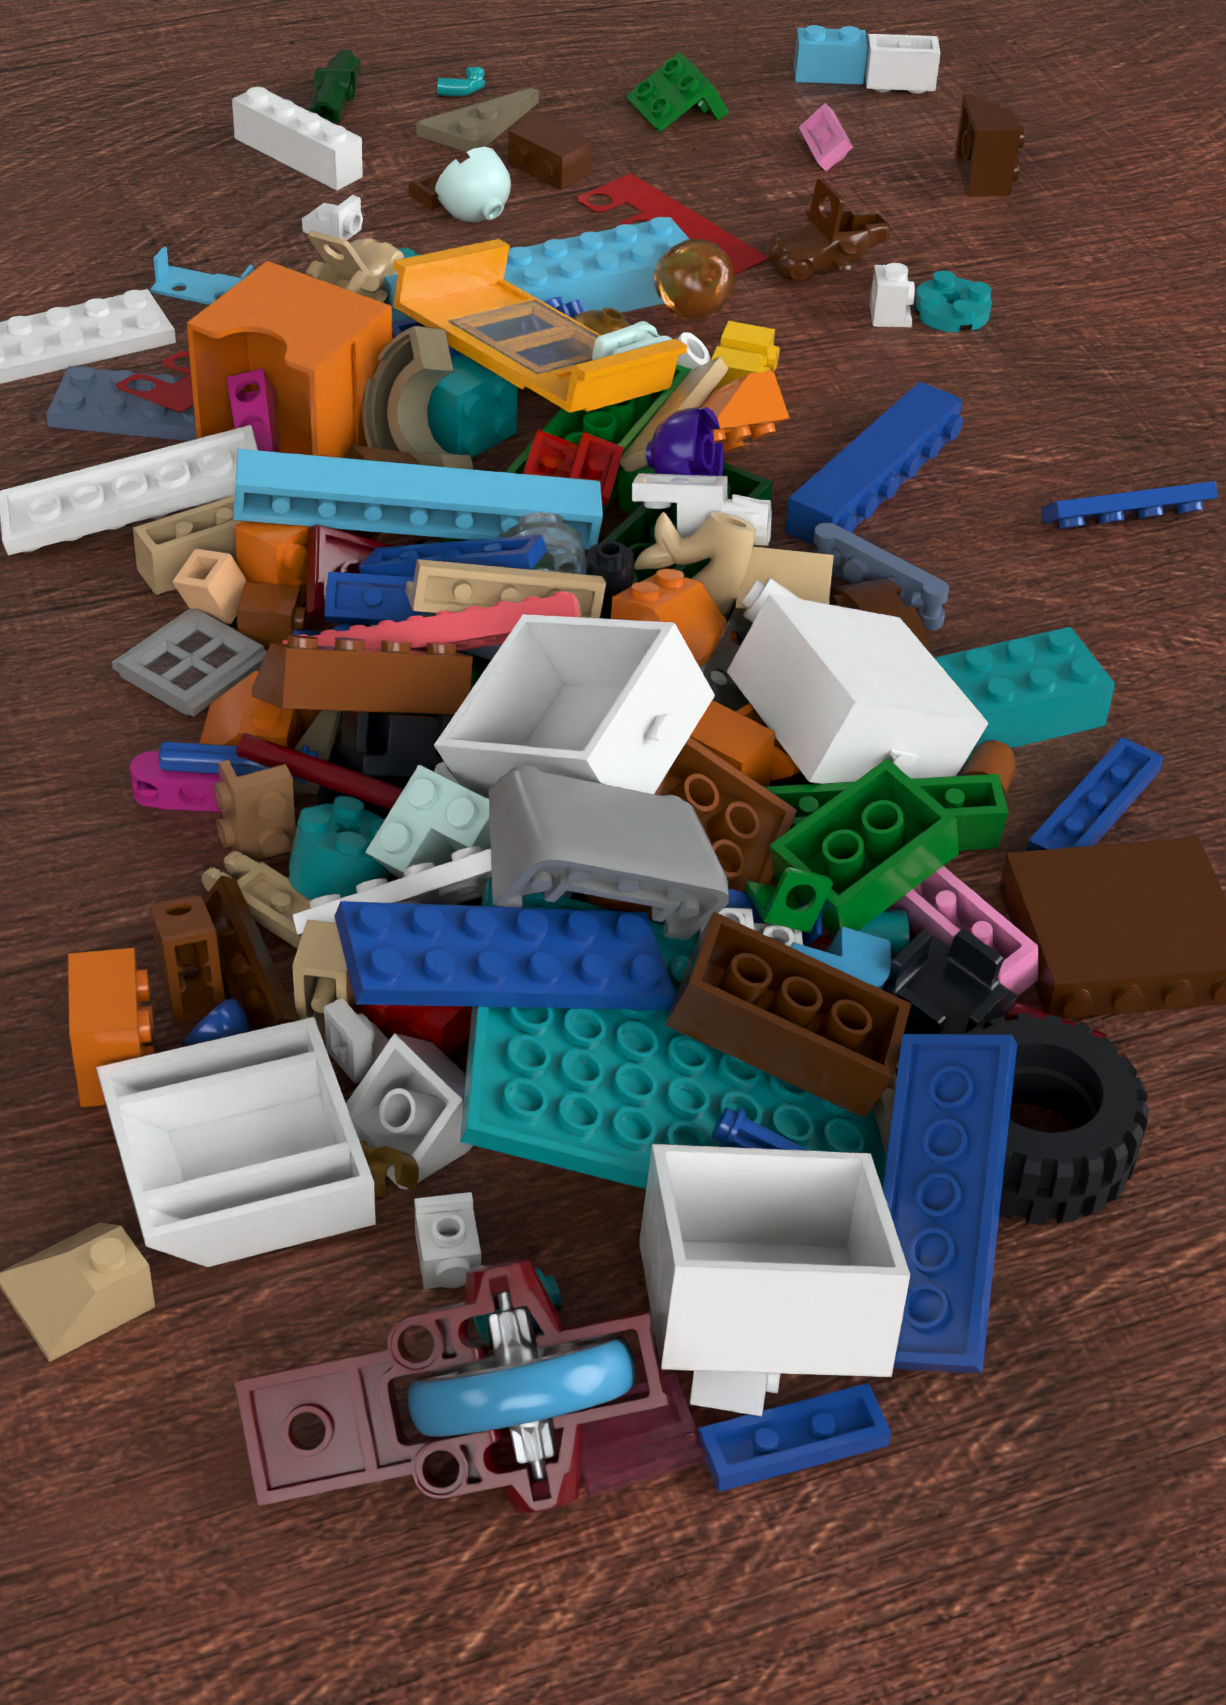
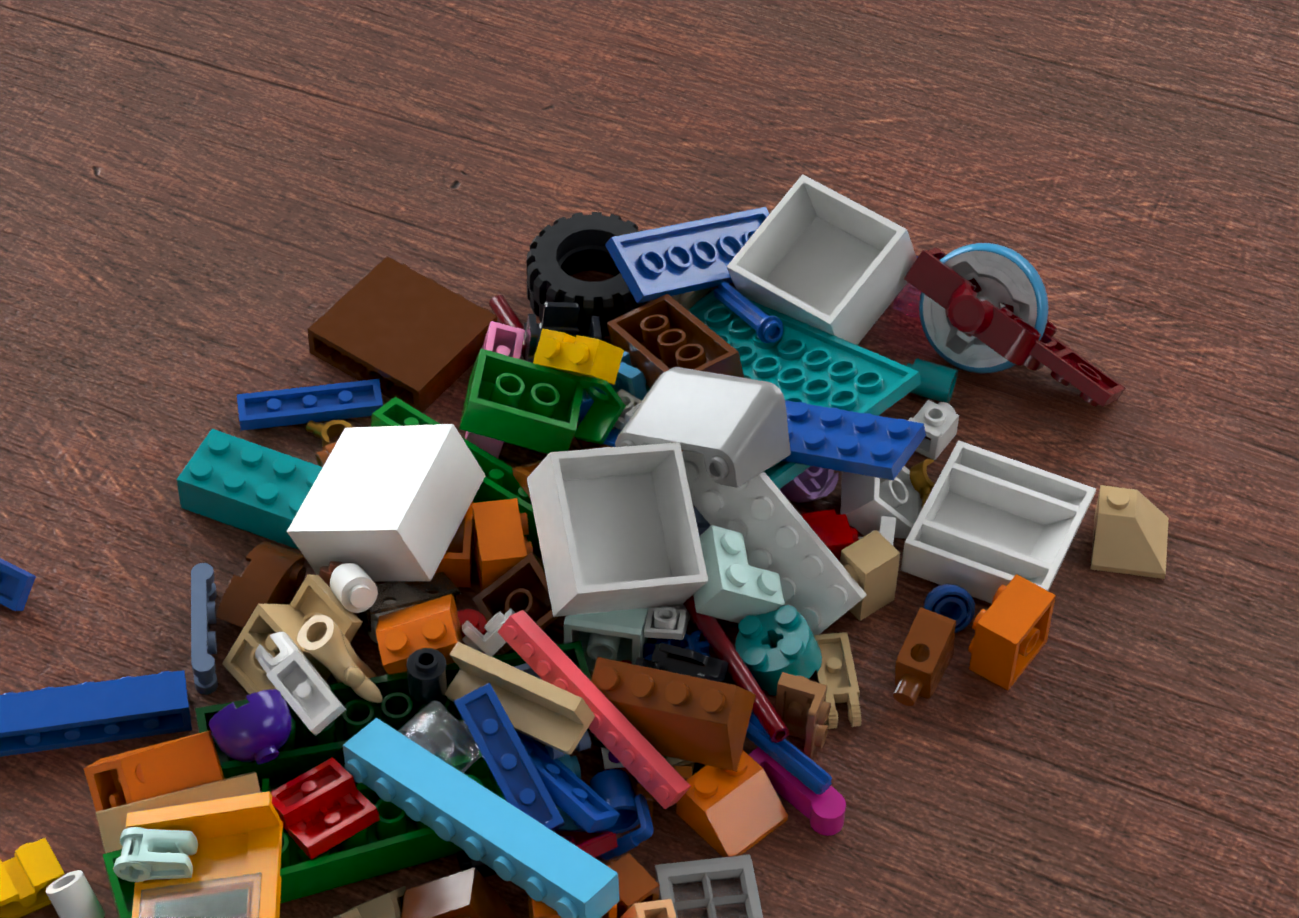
camera: 135 degrees left, 5 degrees up
(245, 958) = (878, 667): reddish brown tile -> none
(863, 899) = (578, 355): none -> yellow brick
(1043, 798) = (327, 430): none -> pearl gold piece

